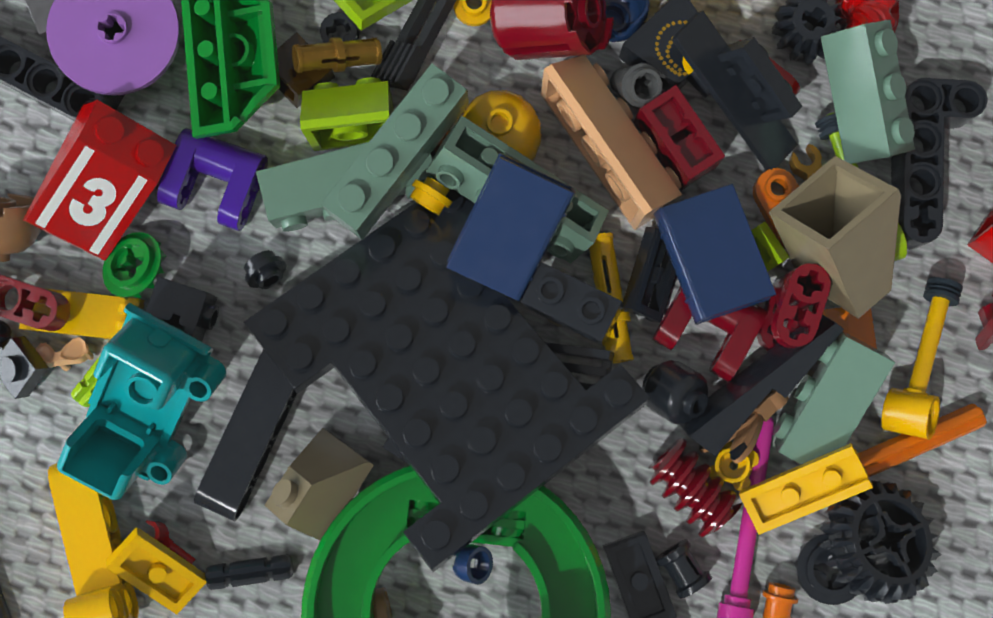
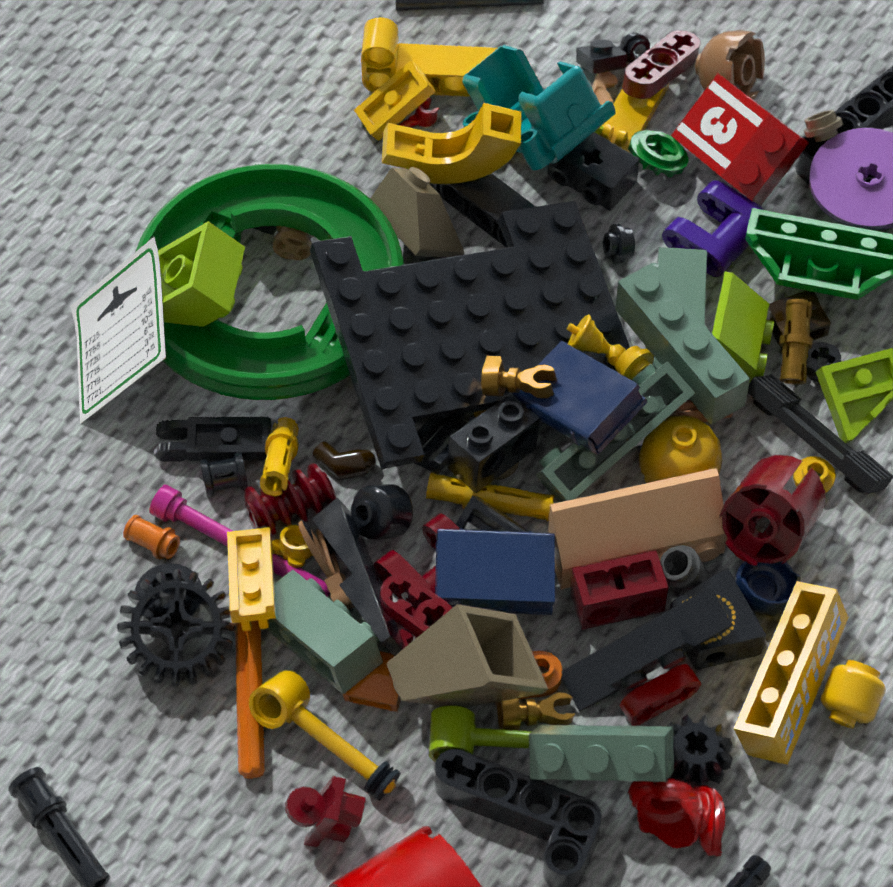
camera: 110 degrees right, 25 degrees down
(59, 93) = (822, 125): none -> dark tan plate
(218, 447) = (459, 154): none -> yellow arch
(249, 572) = (367, 163): black axle -> none
(420, 252) = (589, 339): none -> yellow piece
(482, 566) = (296, 281): dark blue hinge -> none
(517, 316) = (495, 379): none -> pearl gold piece
(624, 455) = (344, 464): none -> dark brown arm
(644, 518) = (280, 449): none -> yellow pin

